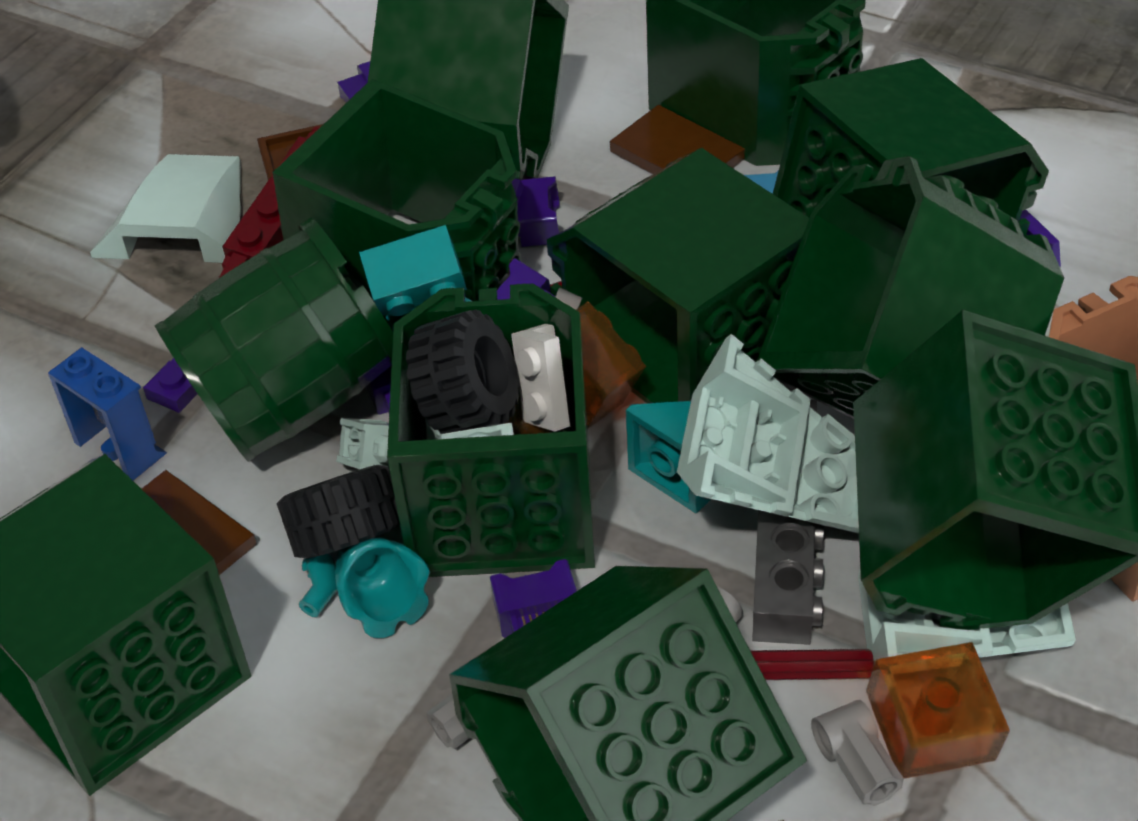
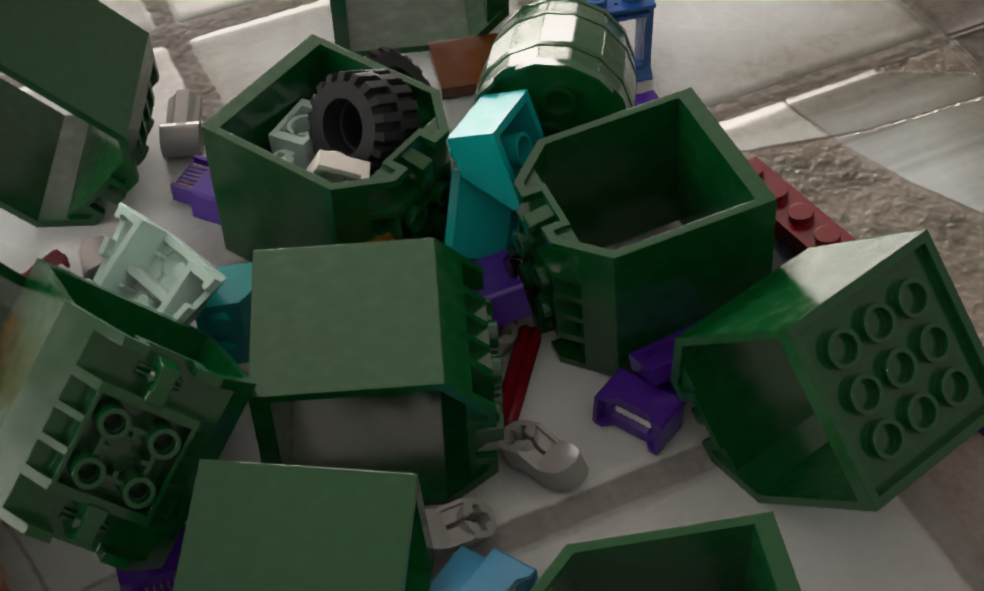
camera: 125 degrees right, 0 degrees up
(180, 200) = (878, 186): light aqua wedge -> none

